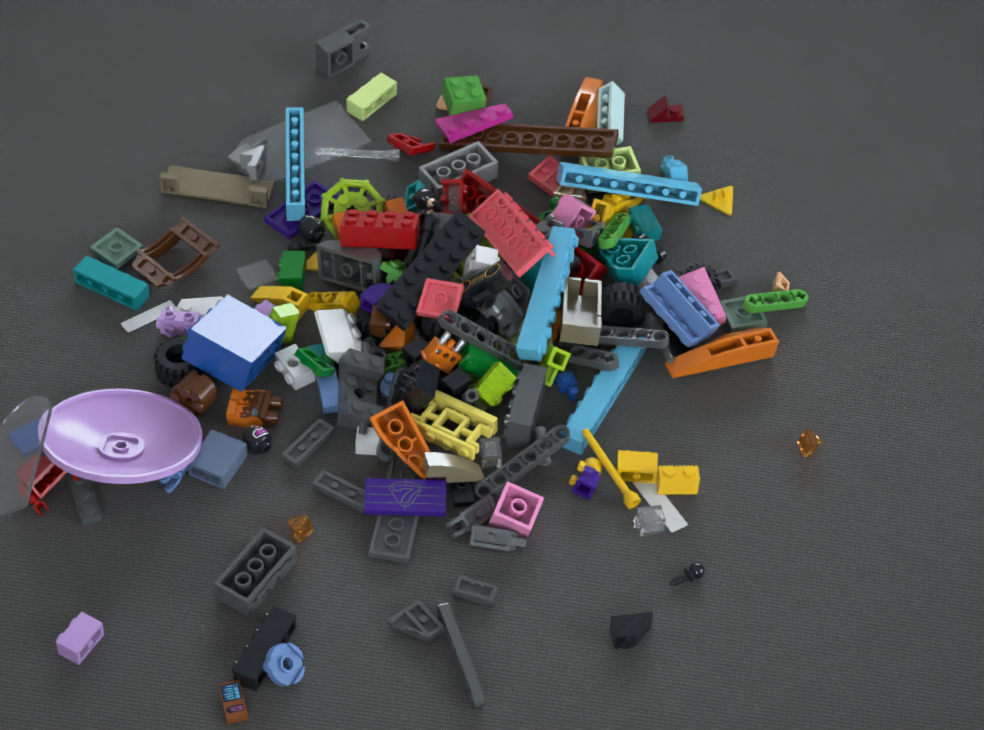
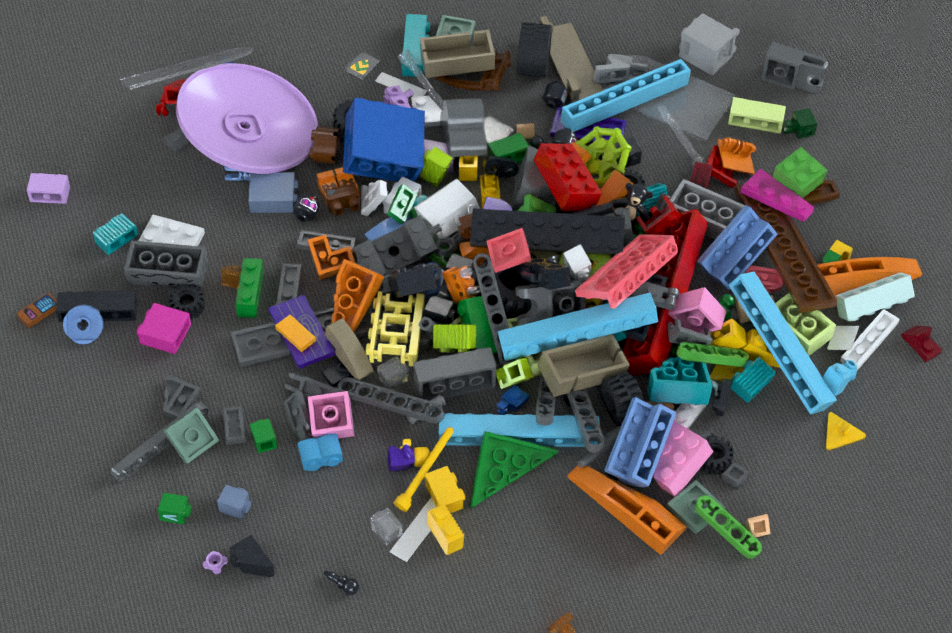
camera: 65 degrees right, 5 degrees up
(100, 334) = (362, 65): none -> sticker
(136, 289) = (407, 58): none -> clear piece
(164, 249) = (453, 54): none -> dark tan piece
(182, 602) = (115, 233): none -> teal brick
(198, 196) = (534, 49): none -> black tyre
(210, 560) = (171, 232): none -> white plate
(250, 212) = (555, 94): none -> black head
(258, 280) = (464, 127): none -> dark grey brick
(273, 251) = (526, 130): none -> light nougat slope
(274, 87) = (707, 44): none -> light grey container
(282, 382) = (372, 196): none -> white wing
(306, 565) = (188, 293): none -> black tyre
(310, 281) = (501, 166): none -> black plate
(326, 518) = (249, 288): none -> green brick
(331, 601) = (164, 328): none -> dark pink brick
(335, 445) = (325, 260): none -> orange brick
(402, 73) = (802, 123): none -> dark green brick
(403, 126) = (736, 155): none -> orange hinge
(410, 498) = (295, 333): none -> light orange tile
(417, 158) = (701, 174): none -> dark red slope
(472, 623) = (191, 435): none -> sand green plate
(501, 572) = (263, 435): none -> green brick
(516, 167) = (736, 247): none -> medium blue brick
(543, 668) = (174, 508): none -> green brick
(544, 537) = (320, 452): none -> dark azure brick
(551, 117) = (837, 252): none -> yellow leg
(562, 620) = (234, 501): none -> sand blue brick
(620, 657) = (212, 557): none -> lavender plate
(632, 416) = (502, 462): none -> green tile
(639, 151) = (843, 338): none -> white sticker
(645, 138) = (871, 338): none -> white plate

